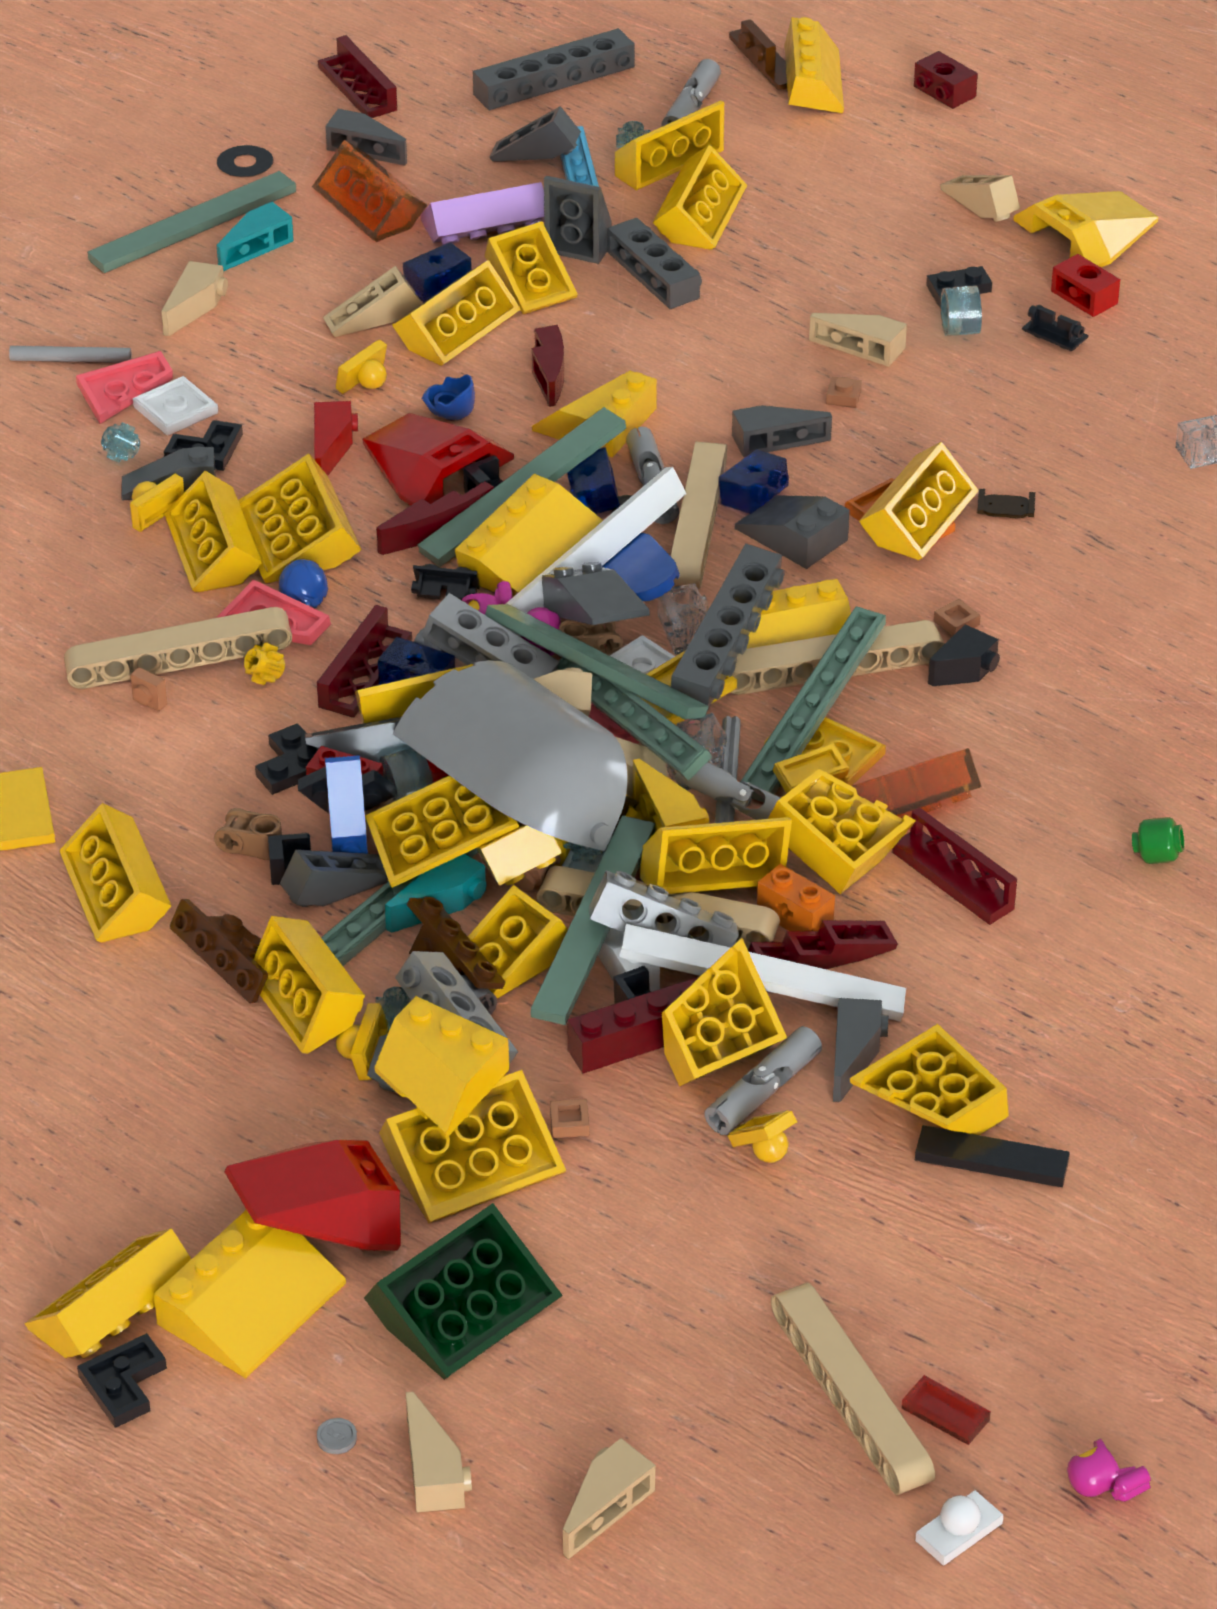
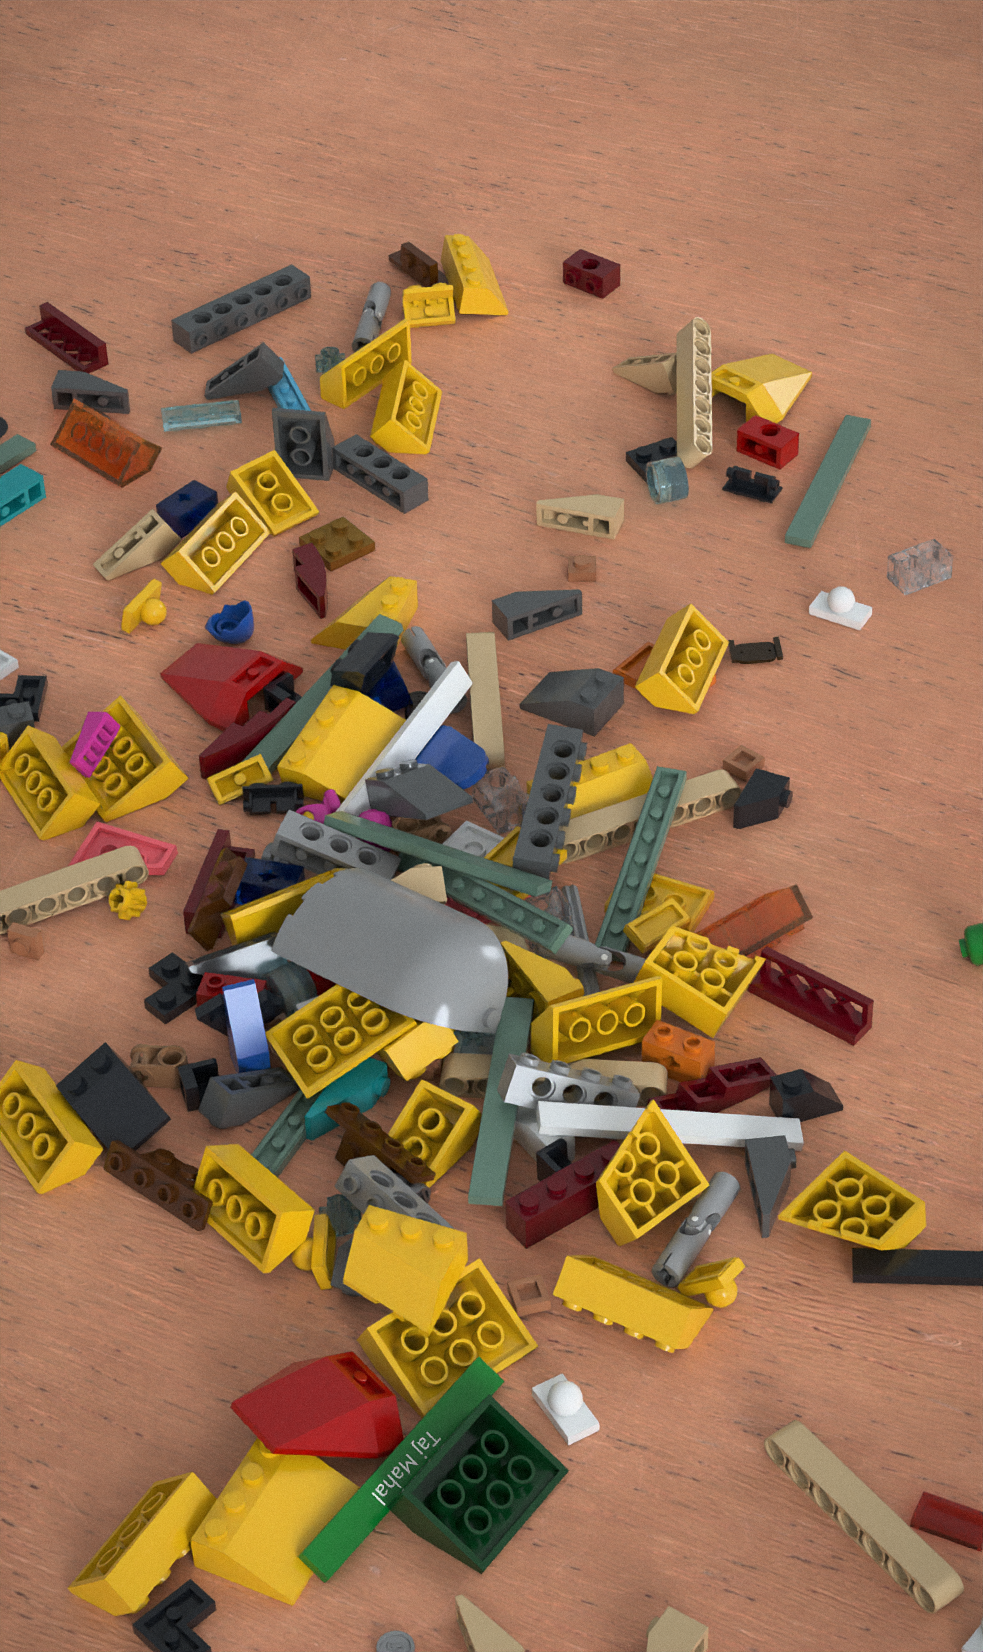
camera: 10 degrees left, 0 degrees up
(193, 858) = (113, 1099): none -> black slope
(282, 484) = (98, 732): none -> dark pink slope
(304, 582) = (143, 816): blue hair -> none
(333, 432) = (132, 670): red slope -> none
(346, 1292) = (370, 1501): none -> green tile
(355, 674) = (217, 898): none -> reddish brown bracket
(400, 560) = (228, 783): none -> yellow slope
(478, 176) = (201, 415): none -> clear light blue plate
(484, 213) = (217, 448): lavender slope -> none
(574, 455) = (365, 662): none -> black slope
(576, 1235) = (565, 1408): none -> white tile
(589, 330) = (339, 543): none -> pearl gold plate
(673, 1141) = (631, 1302): none -> yellow slope
(753, 481) = (527, 662): clear blue brick -> none
(755, 91) = (429, 305): none -> yellow bracket
(916, 965) = (802, 1096): none -> black slope
(1015, 221) = (694, 392): none -> tan beam
(1113, 472) = (840, 608): none -> white tile
(1141, 336) = (827, 481): none -> sand green tile

